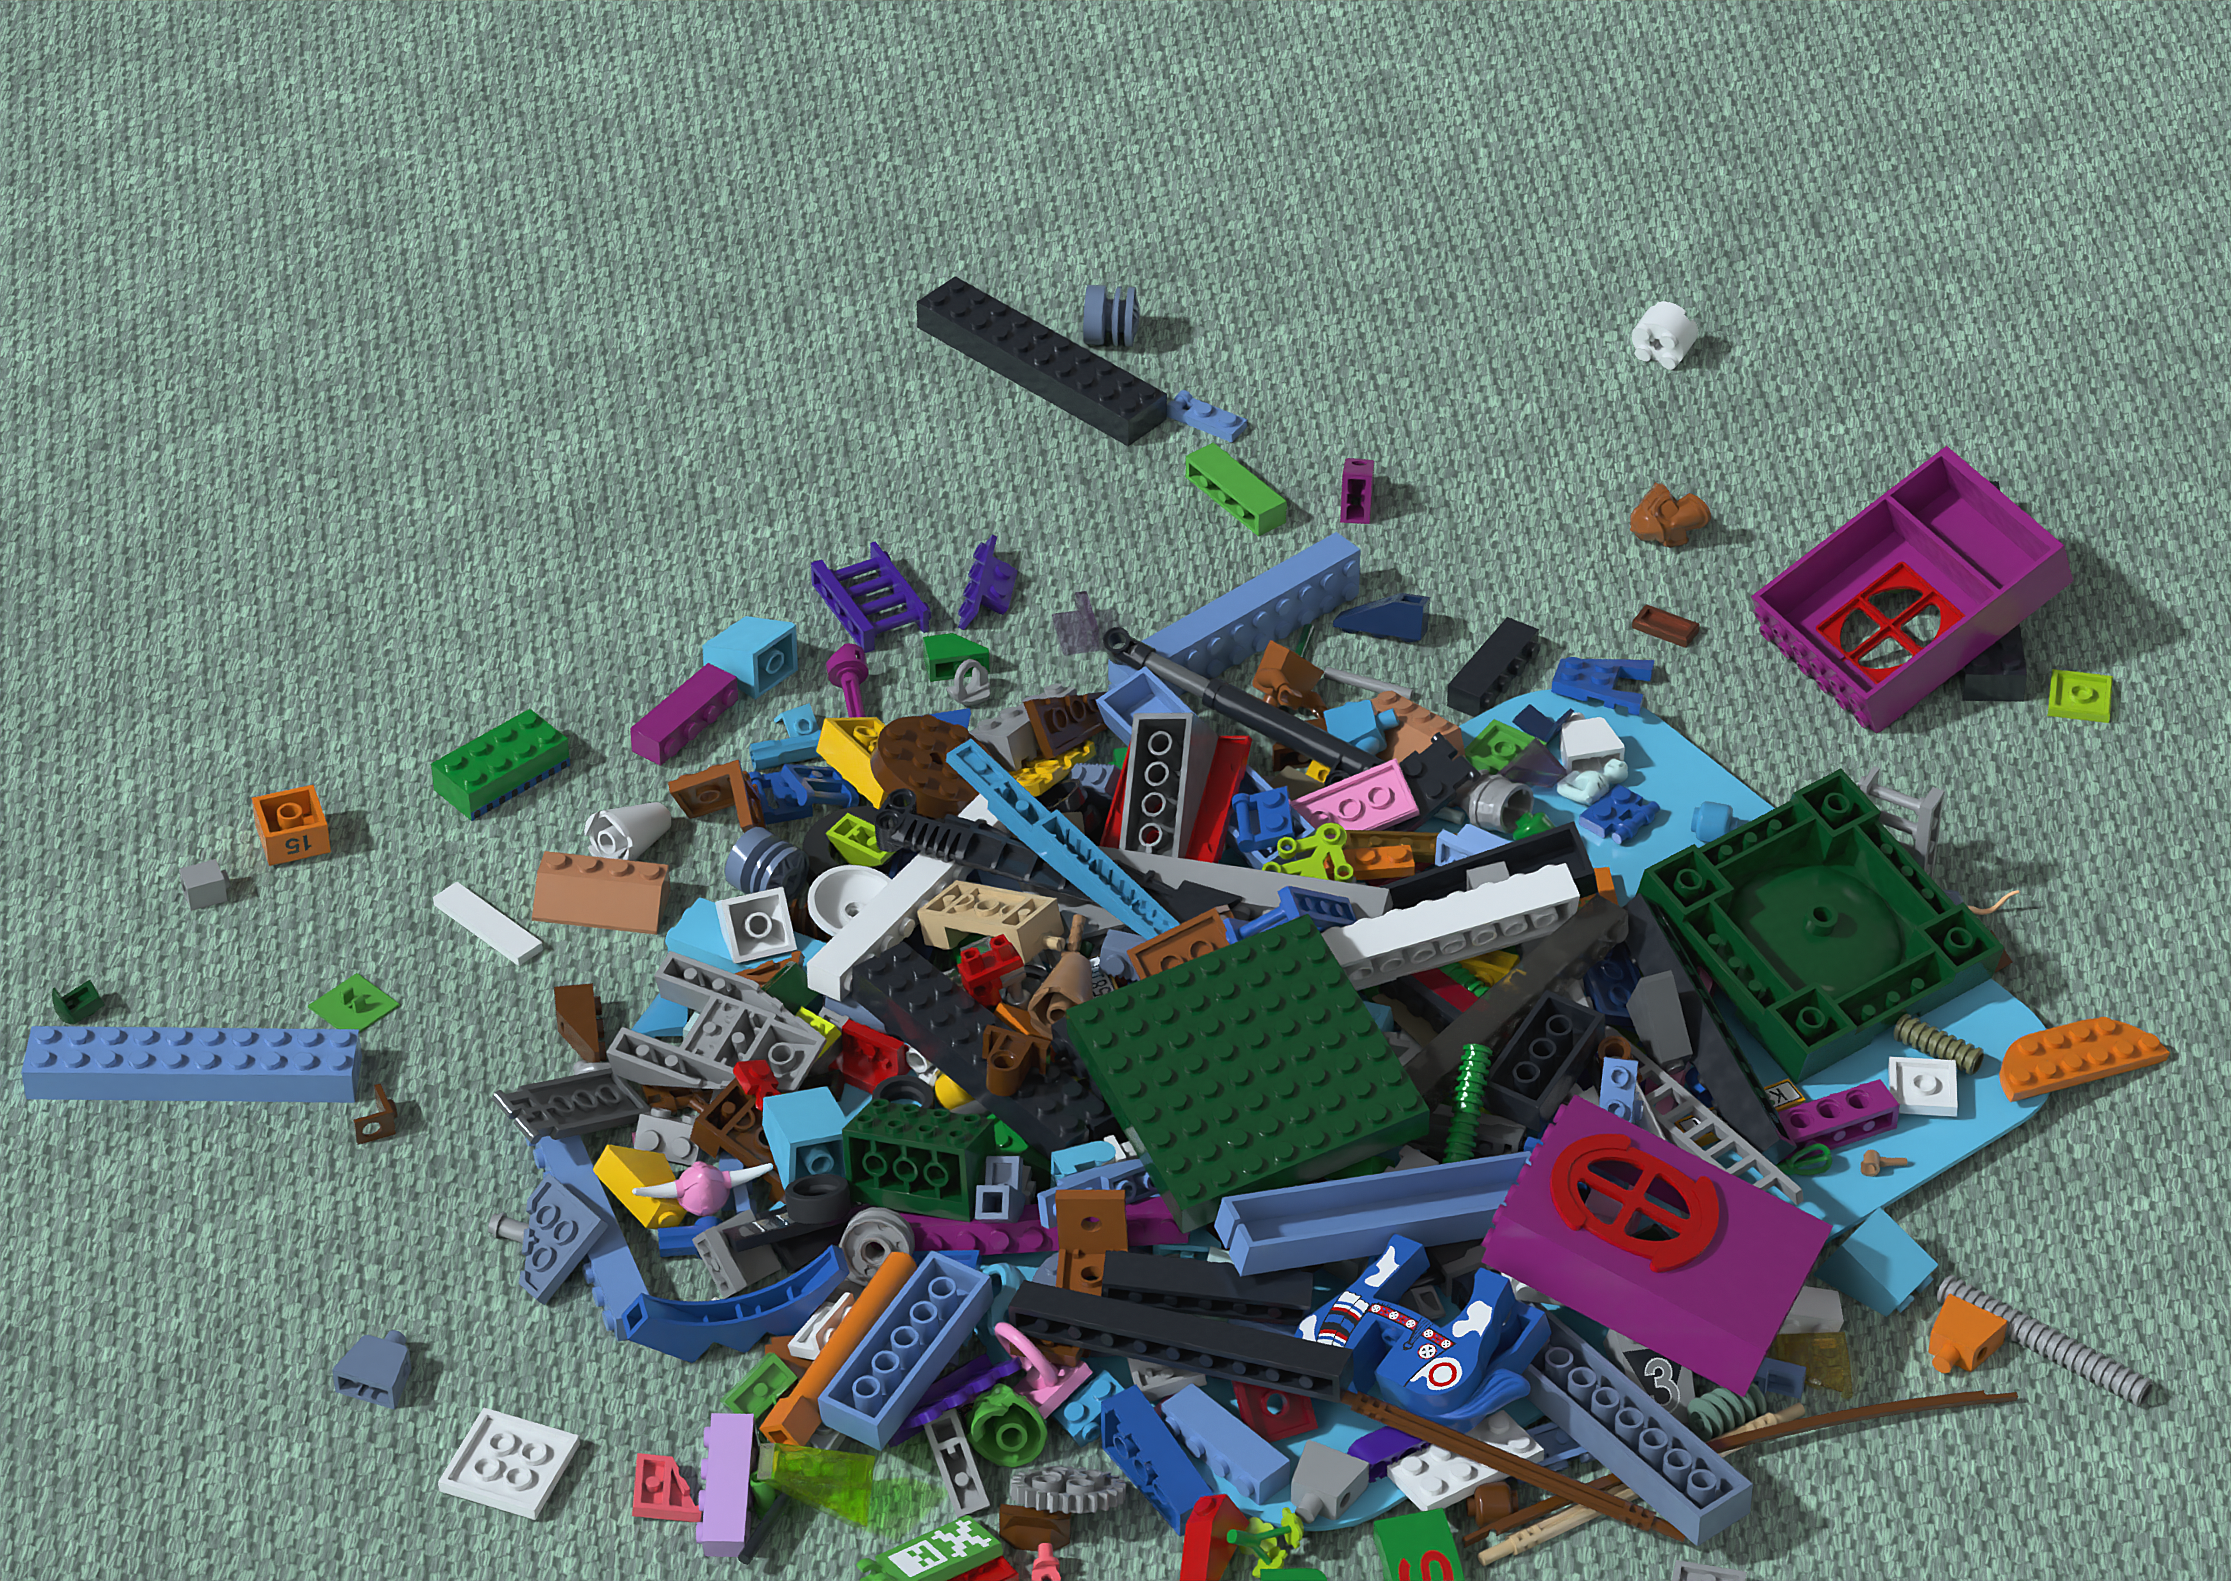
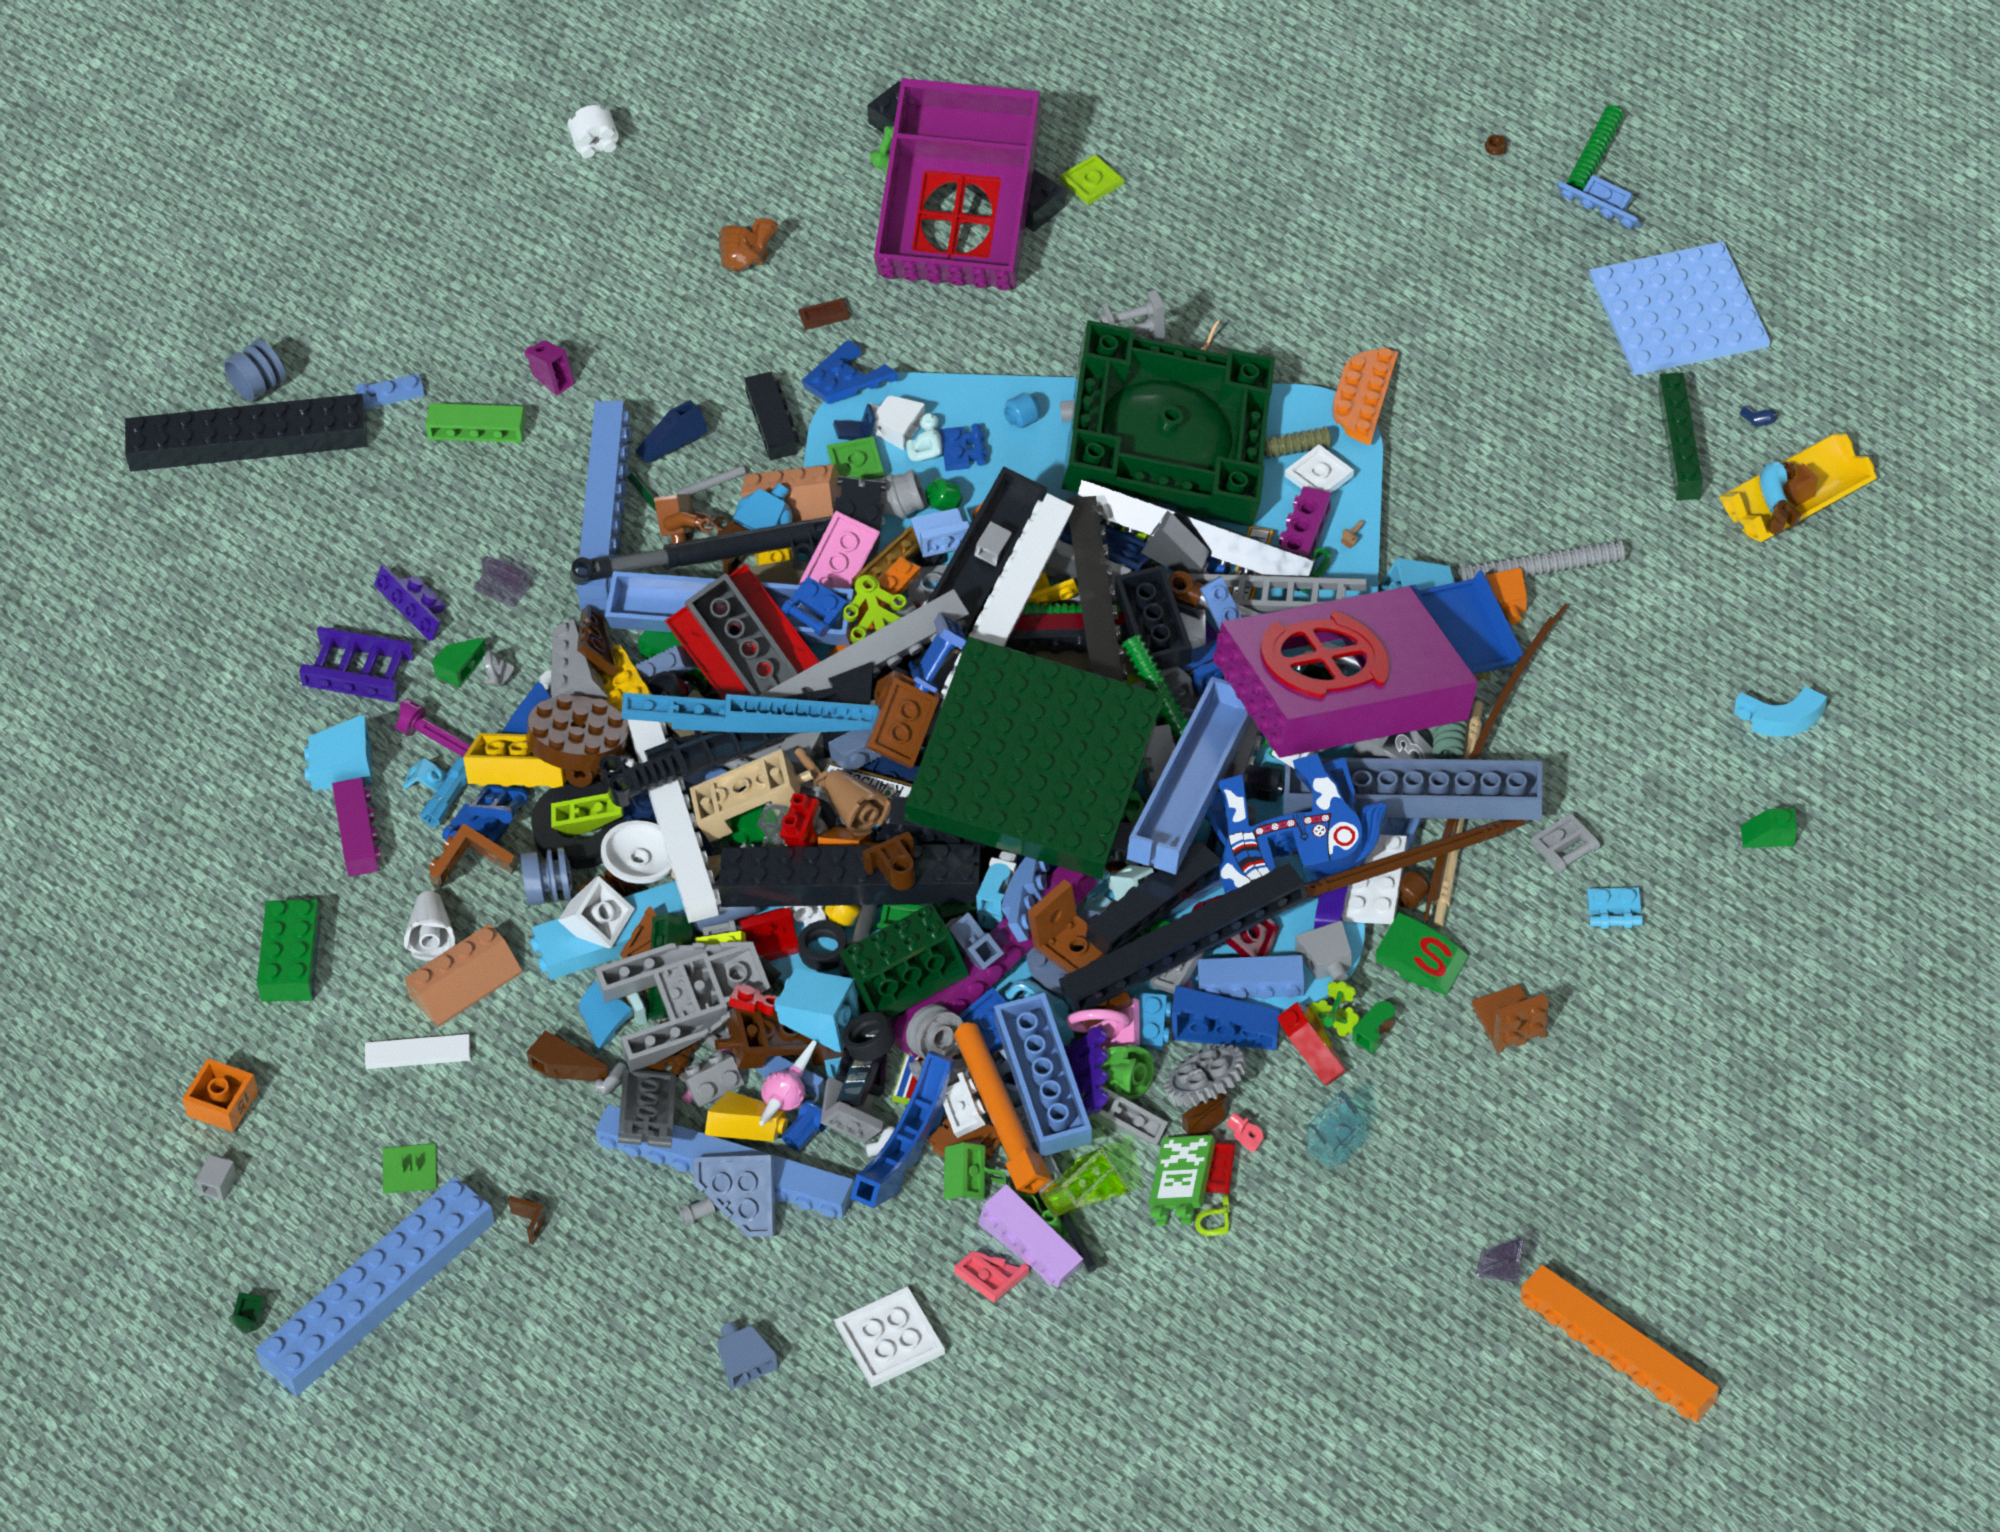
camera: 45 degrees left, 10 degrees up
(1534, 766) = (888, 455): slope -> none
(1861, 1321) = (1473, 623): none -> blue panel

